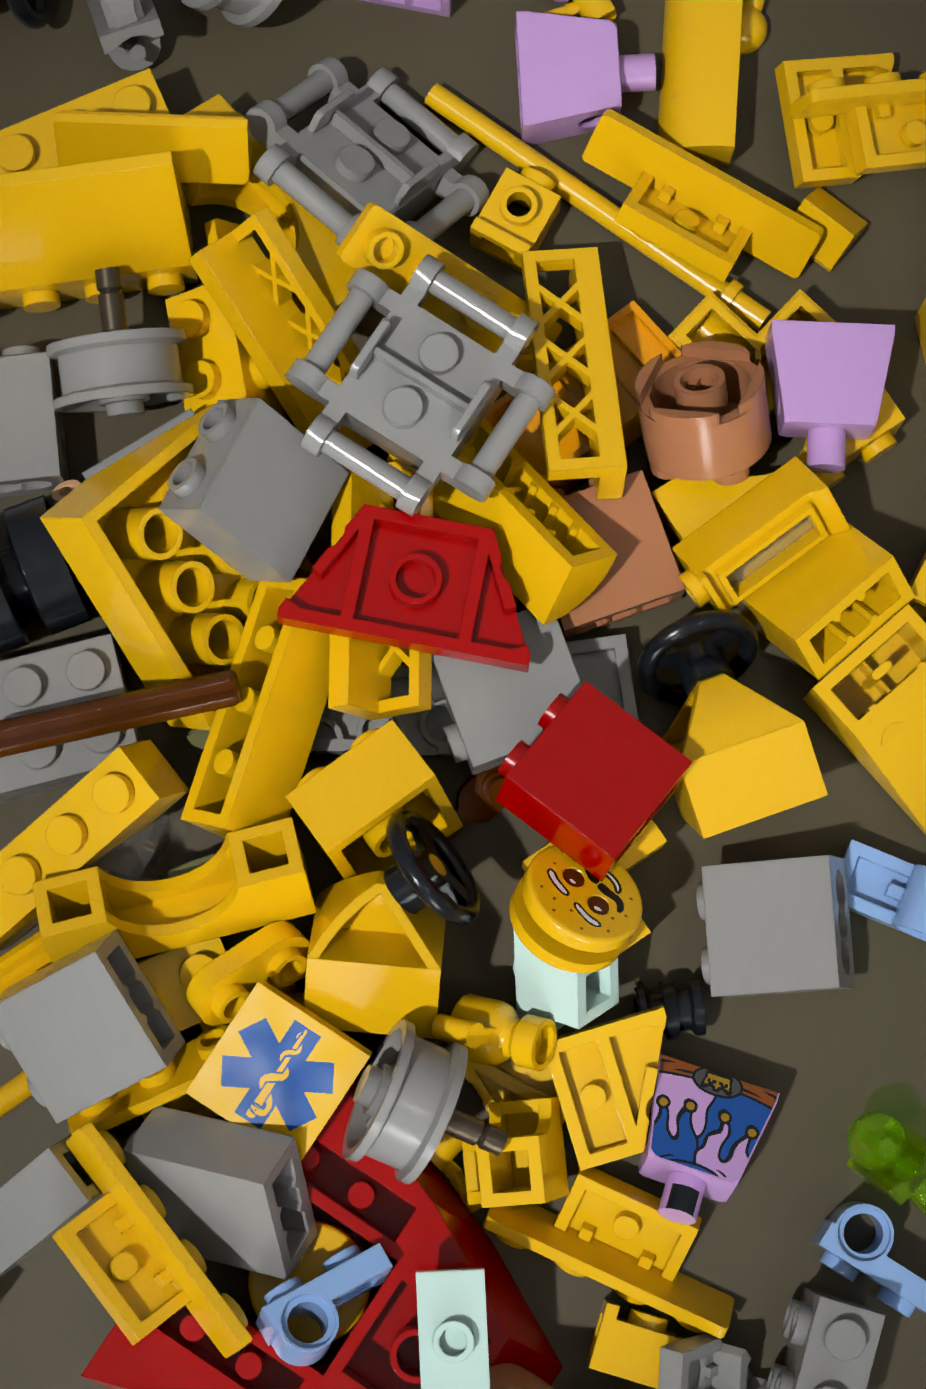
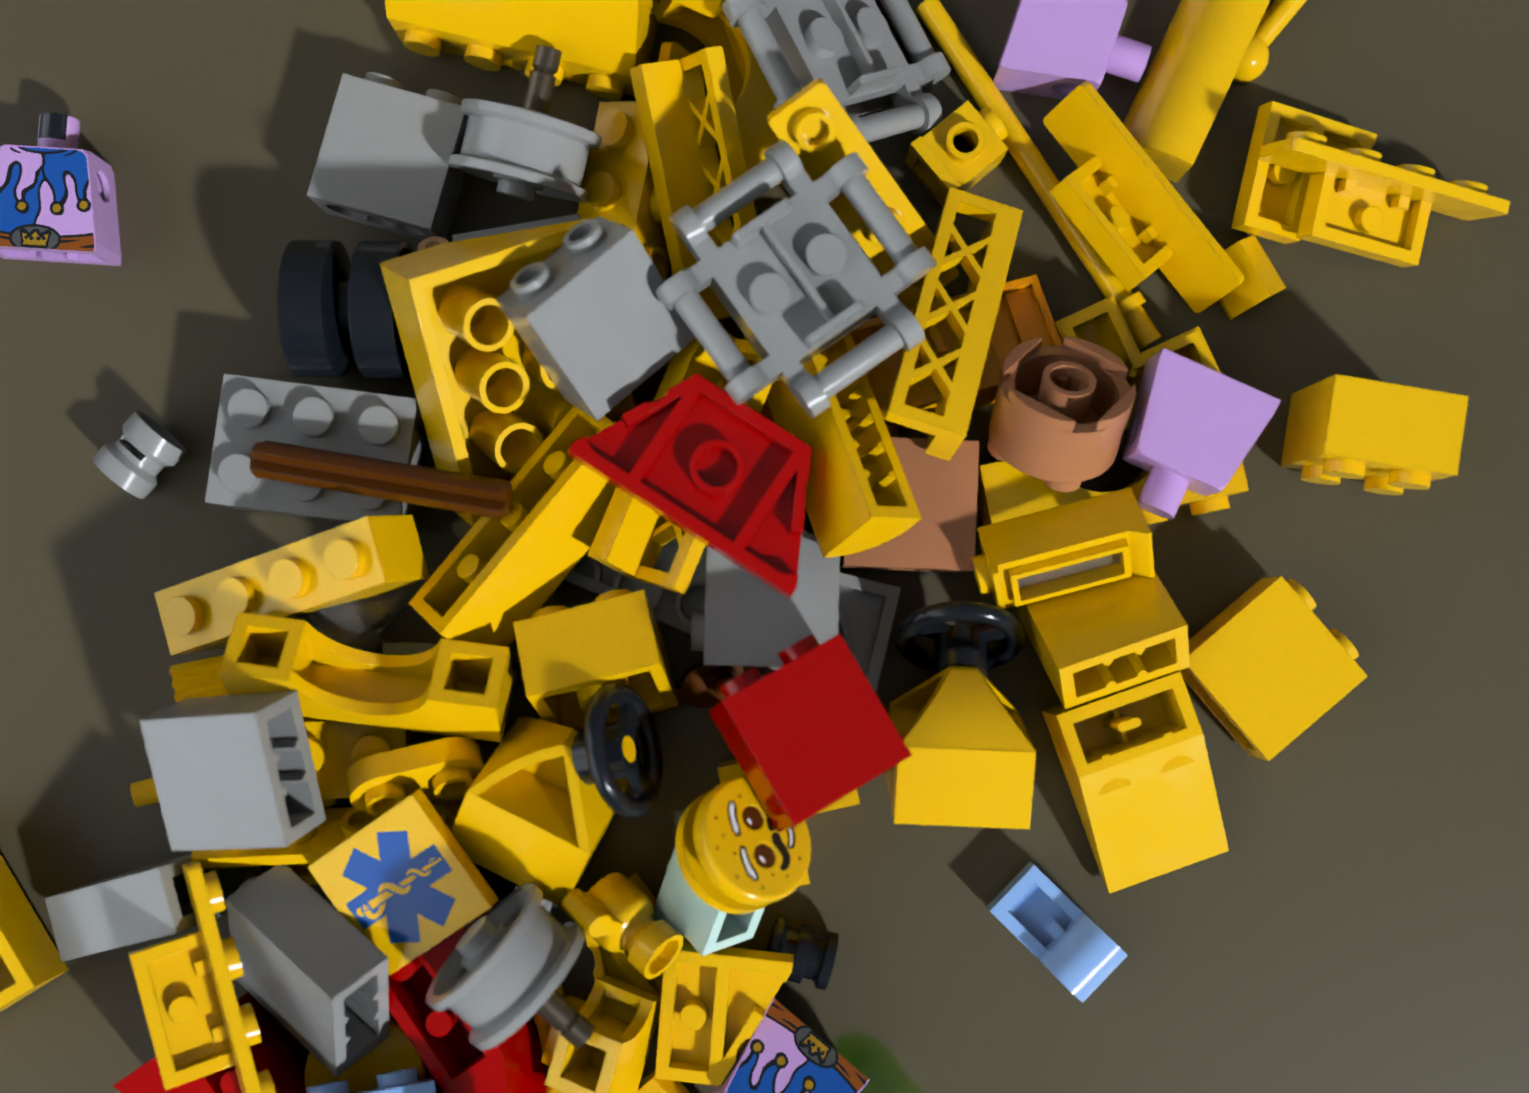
camera: 20 degrees right, 5 degrees up
(776, 926) = (929, 923): light grey piece -> none

